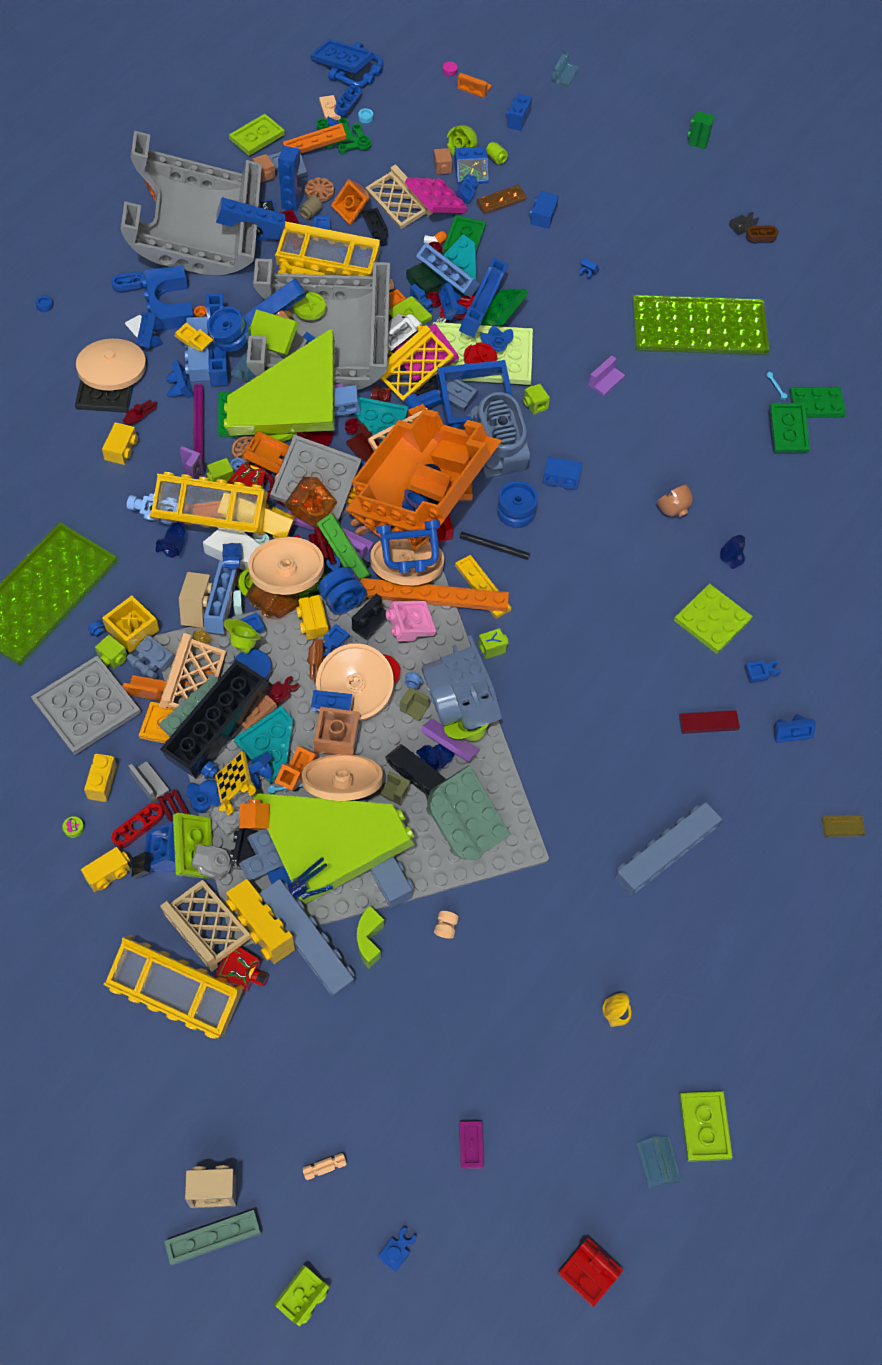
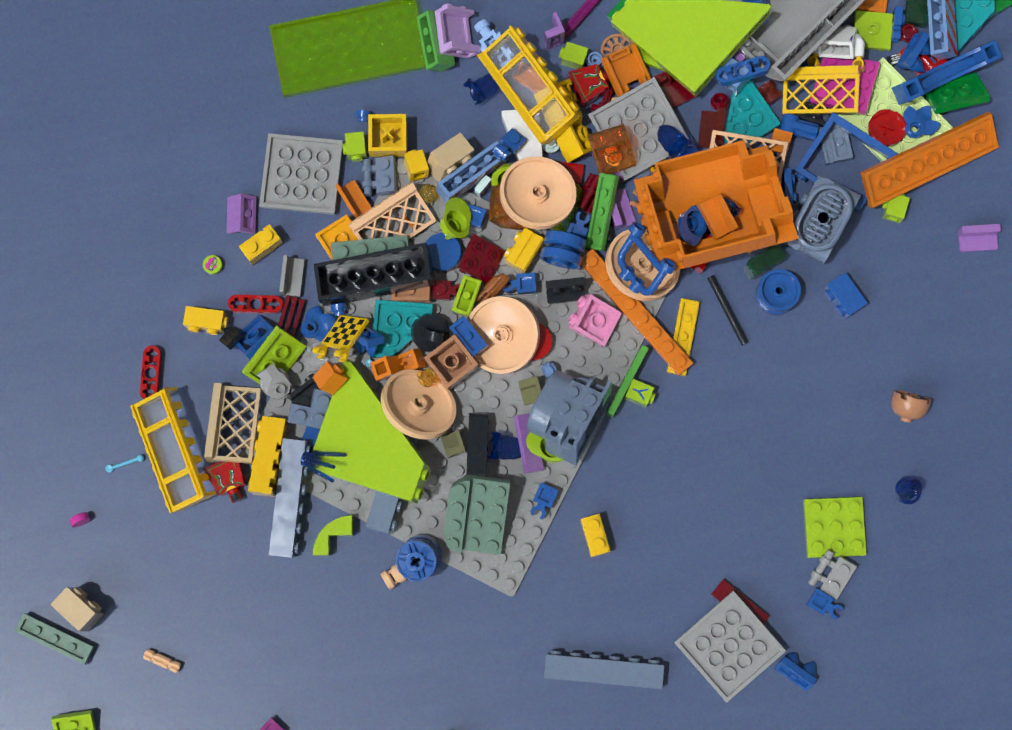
camera: 50 degrees right, 20 degrees up
(62, 771) = (241, 214): none -> medium lavender panel
(98, 941) = (156, 359): none -> red beam
(106, 514) = (455, 32): none -> lavender panel
(106, 537) = (430, 45): none -> bright green brick
(130, 1054) = (109, 468): none -> medium azure hinge
(142, 1117) = (79, 519): none -> dark pink tile
(173, 625) = (416, 165): none -> yellow brick
(285, 649) = (480, 259): none -> dark red hinge
(298, 725) = (429, 332): none -> black tile
(301, 679) = (466, 296): none -> lime slope
(329, 756) = (427, 377): none -> clear yellow plate
(348, 462) = (673, 141): none -> clear blue piece
(351, 380) = (739, 78): none -> blue beam
(443, 895) = (426, 549): none -> blue wheel
(471, 629) = (627, 381): none -> bright green tile
(487, 494) = (767, 260): none -> clear green brick
(501, 766) = (544, 497): none -> blue plate
(528, 351) = (929, 160): none -> orange plate
(563, 761) = (595, 535): none -> yellow brick
(733, 751) = (729, 646): none -> light grey plate
(750, 644) = (836, 578): none -> light grey plate

